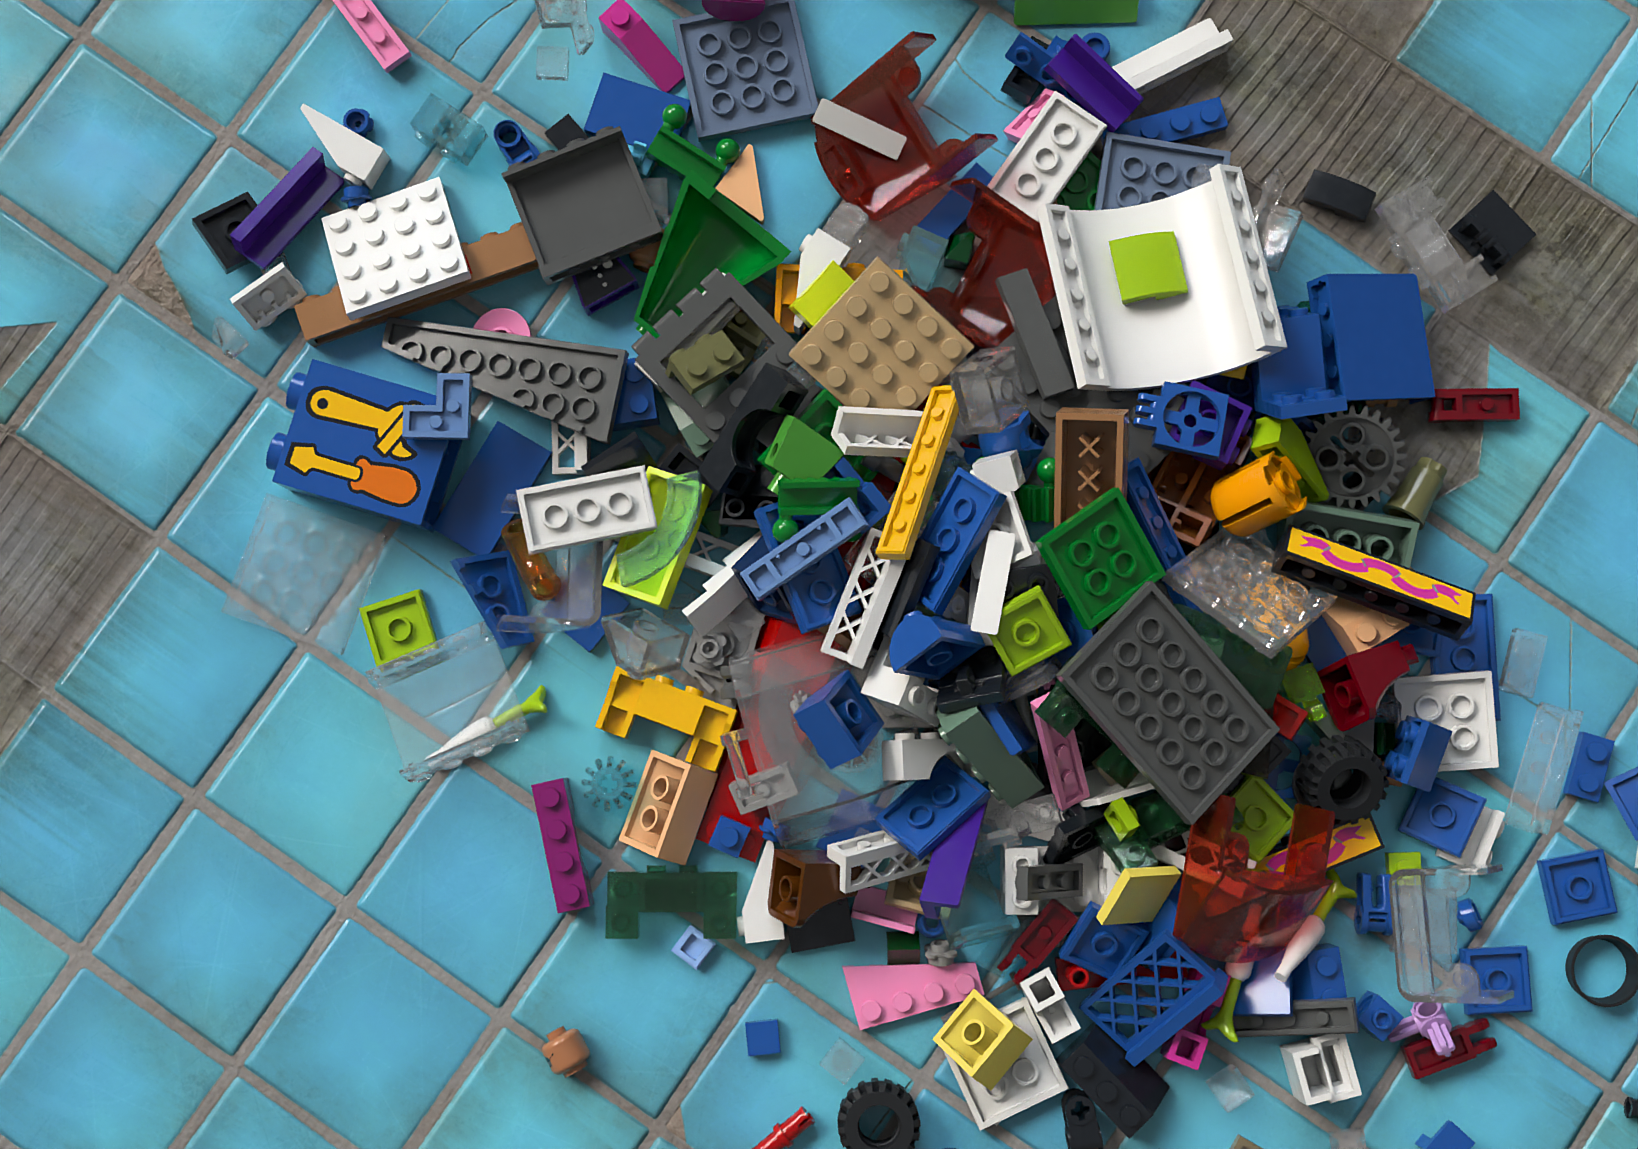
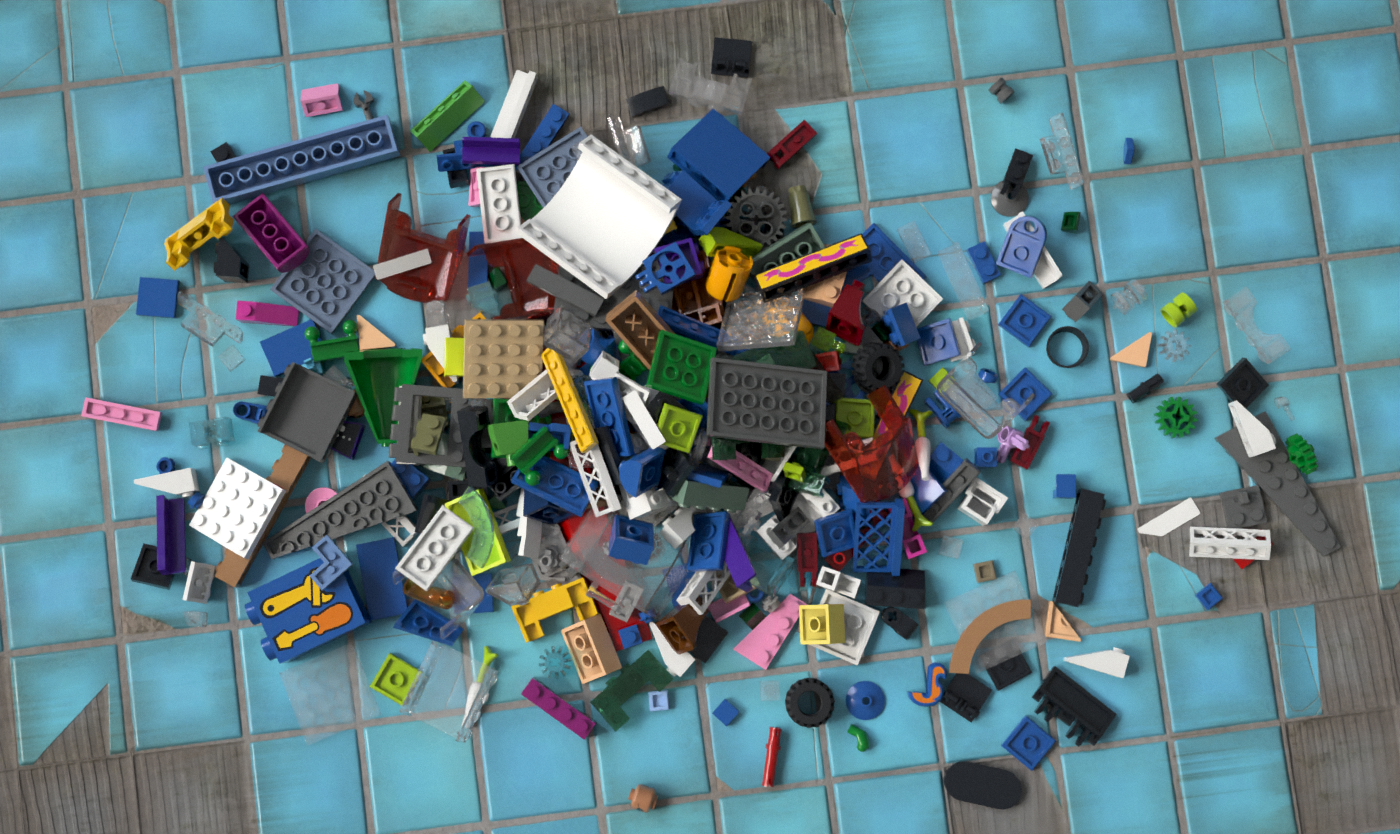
camera: 40 degrees left, 0 degrees up
(804, 549) = (548, 478): medium blue plate -> none
(1138, 895) = (831, 498): light yellow tile -> none
(1148, 266) = (589, 214): lime slope -> none

